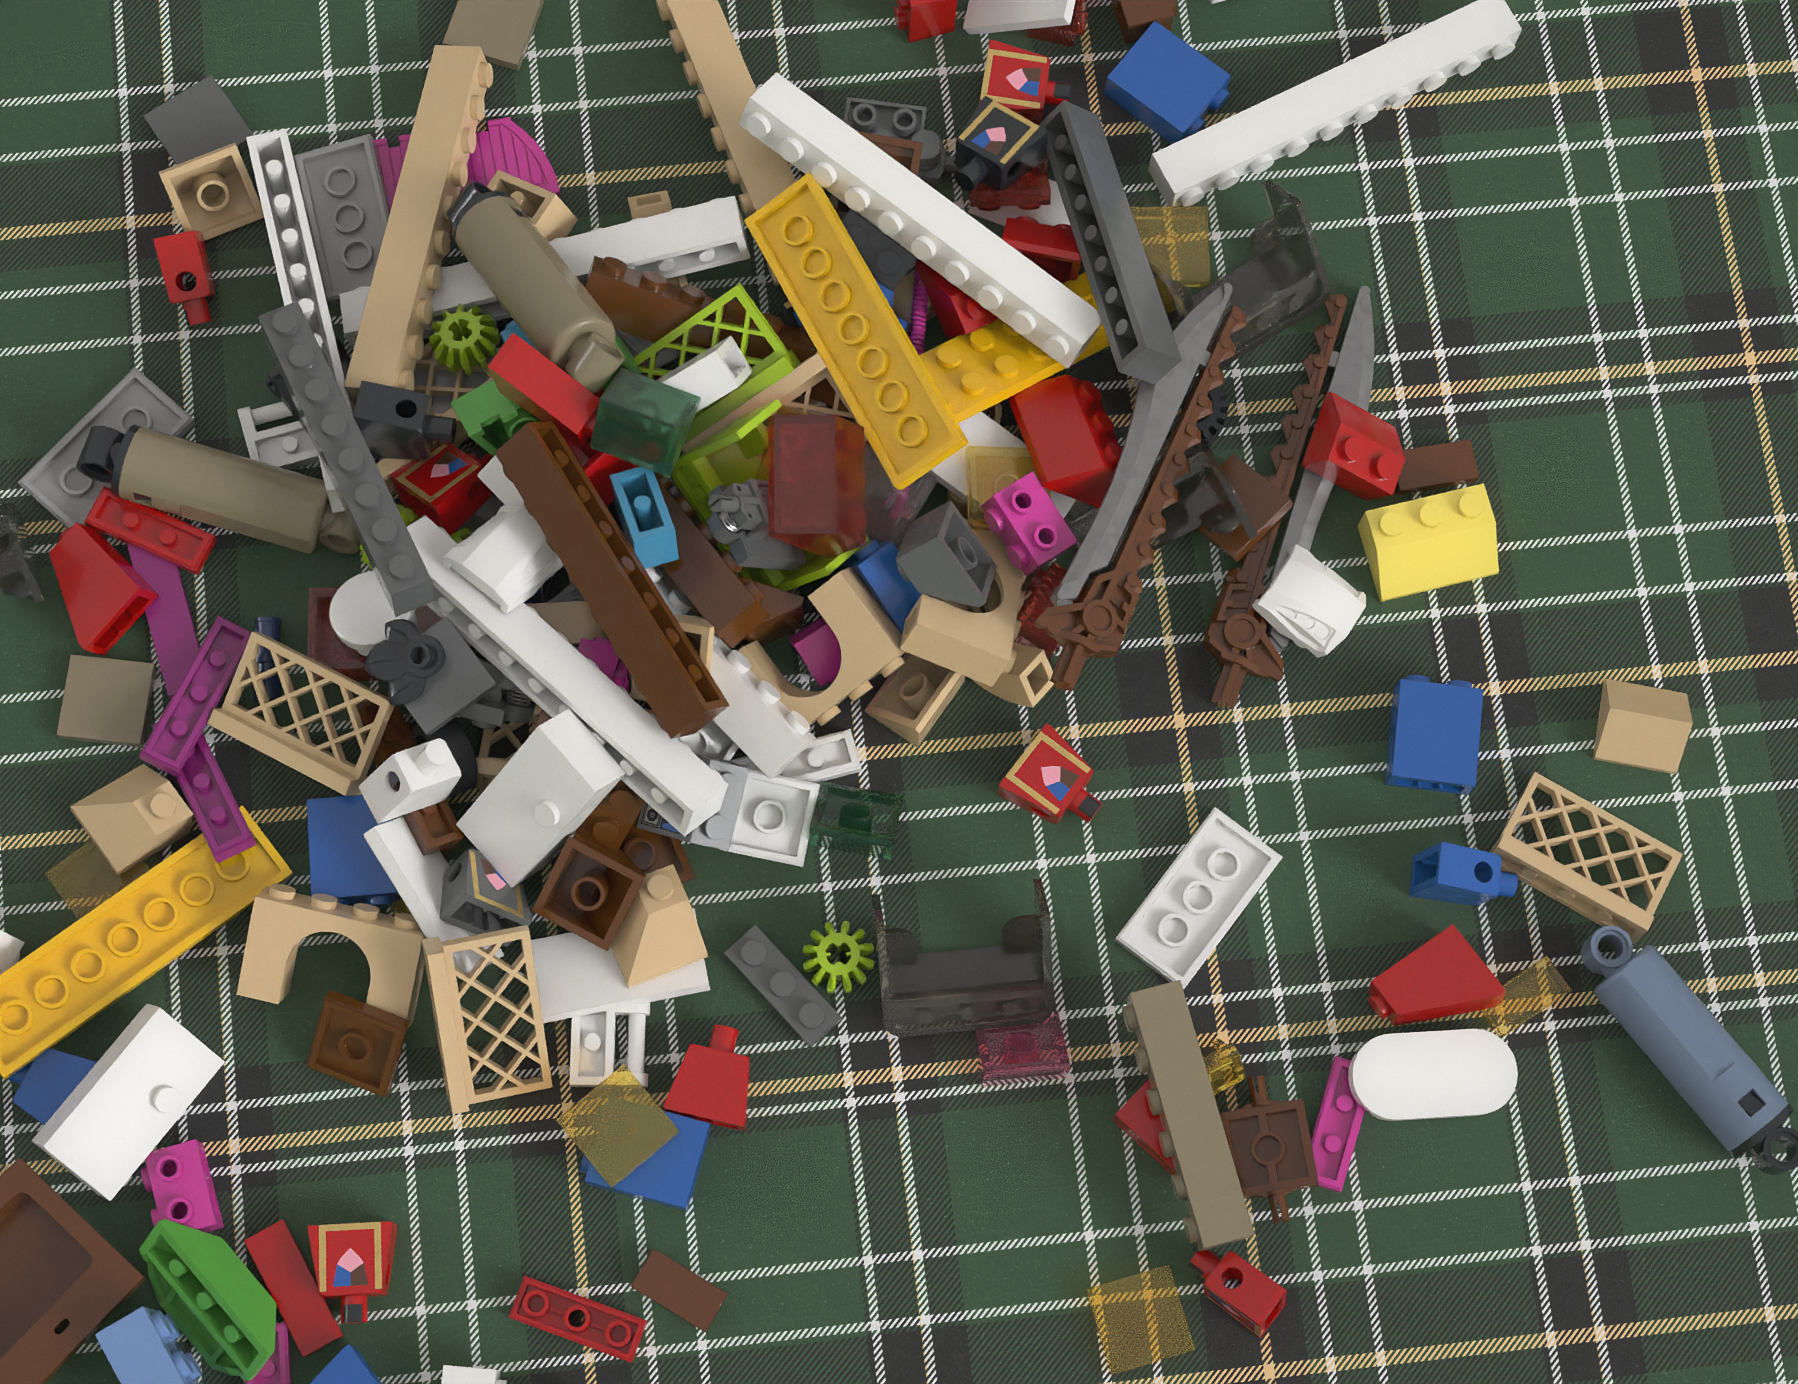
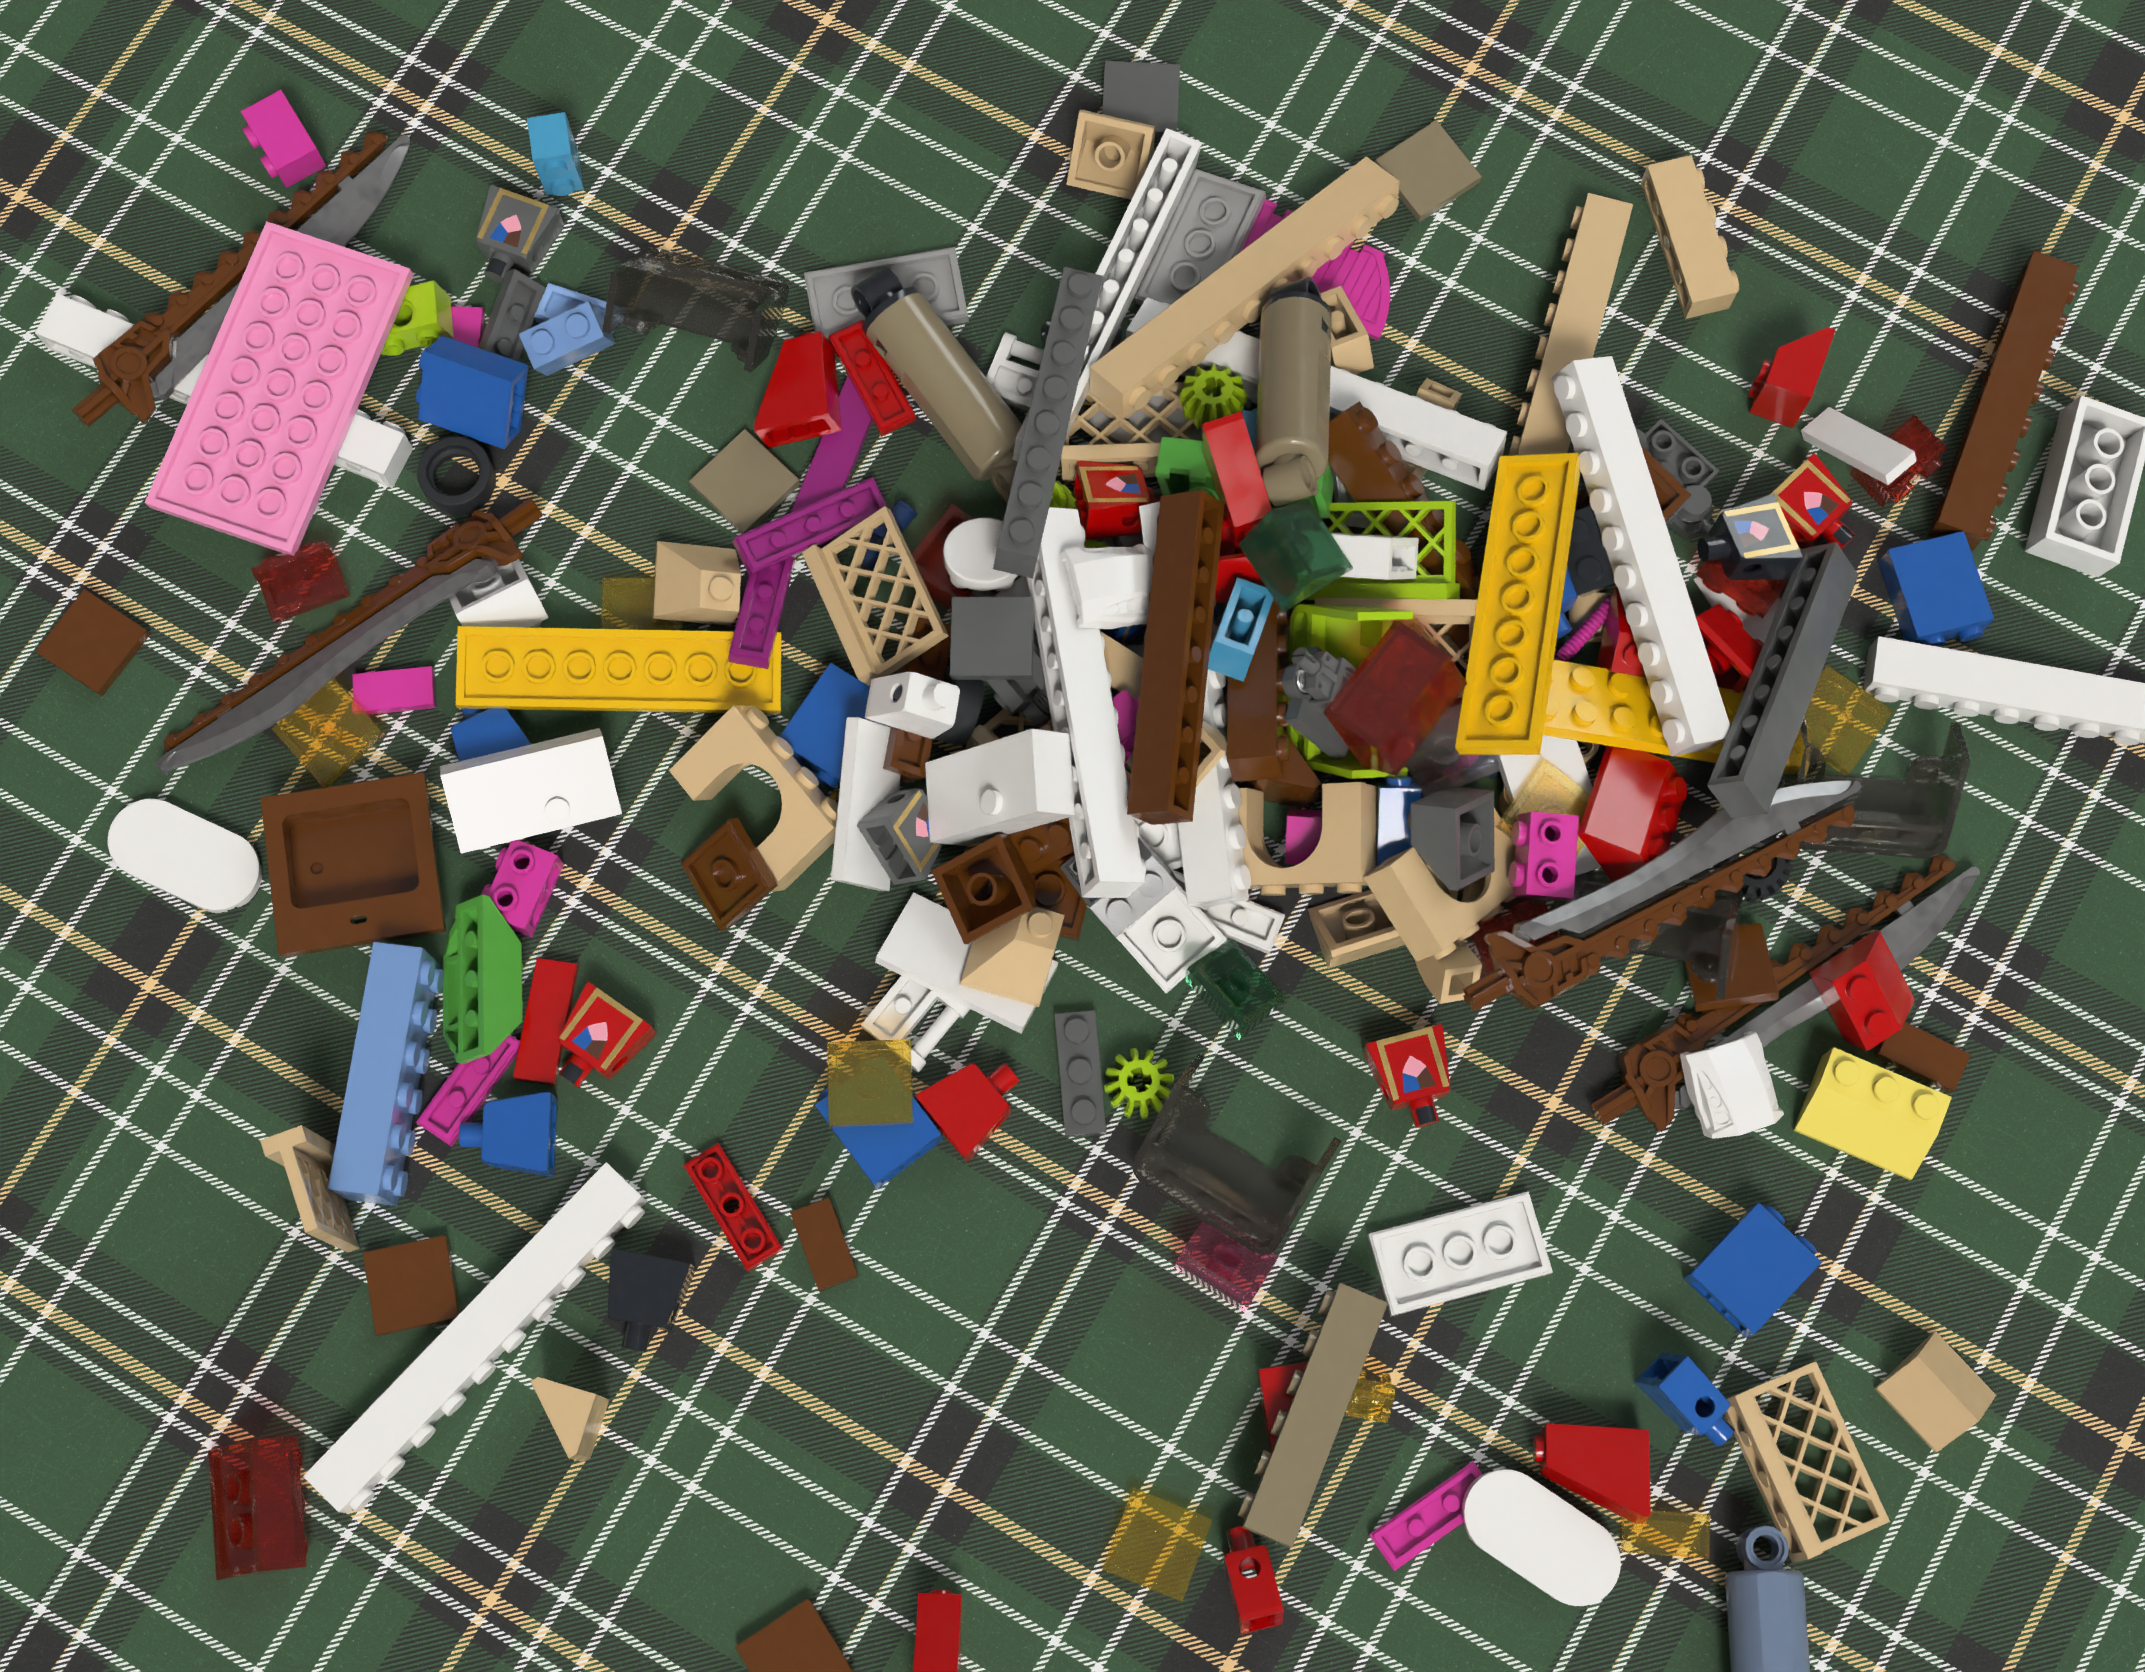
camera: 45 degrees right, 0 degrees up
(177, 257) = (1049, 186): red torso -> none
(399, 661) = (970, 606): black plate -> none
(400, 422) = (1110, 424): black torso -> none
(449, 1020) = (802, 913): tan fence -> none
(1271, 1148) = (1361, 1492): reddish brown plate -> none

